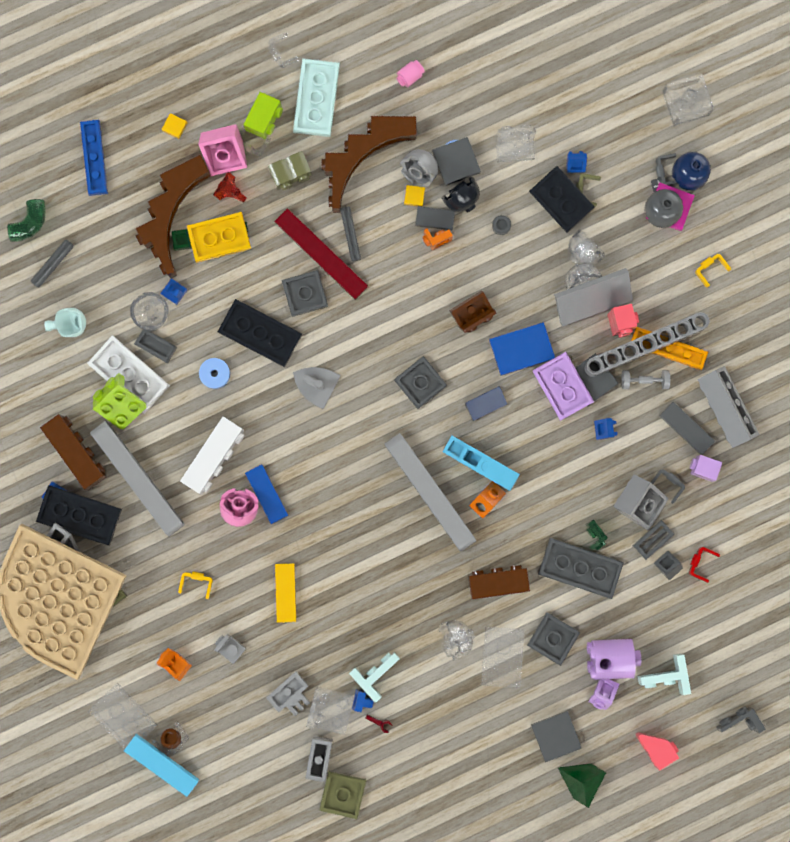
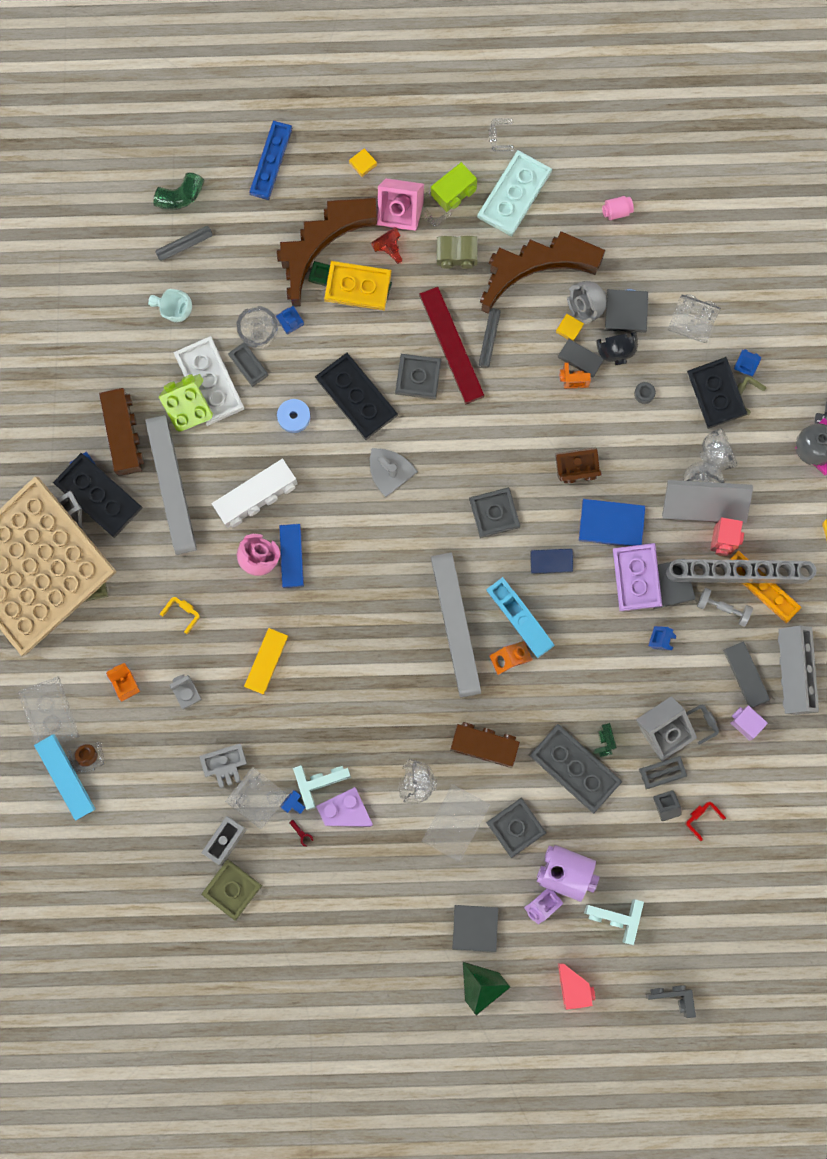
camera: 25 degrees right, 5 degrees down
(407, 688) = (344, 810): none -> lavender wing

